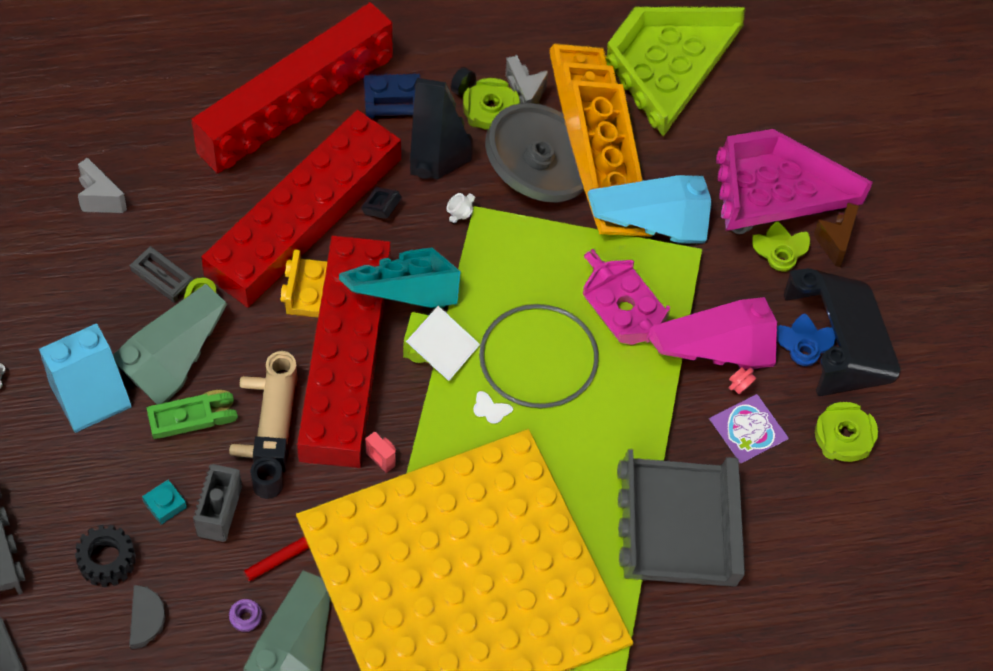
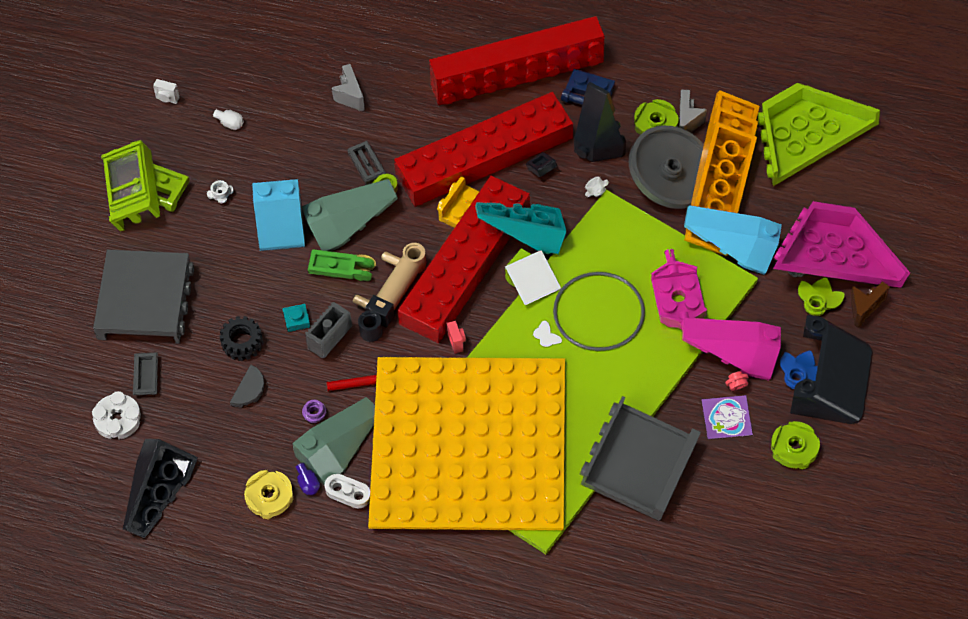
camera: 30 degrees right, 0 degrees up
(462, 81) = (643, 95): black tile -> none

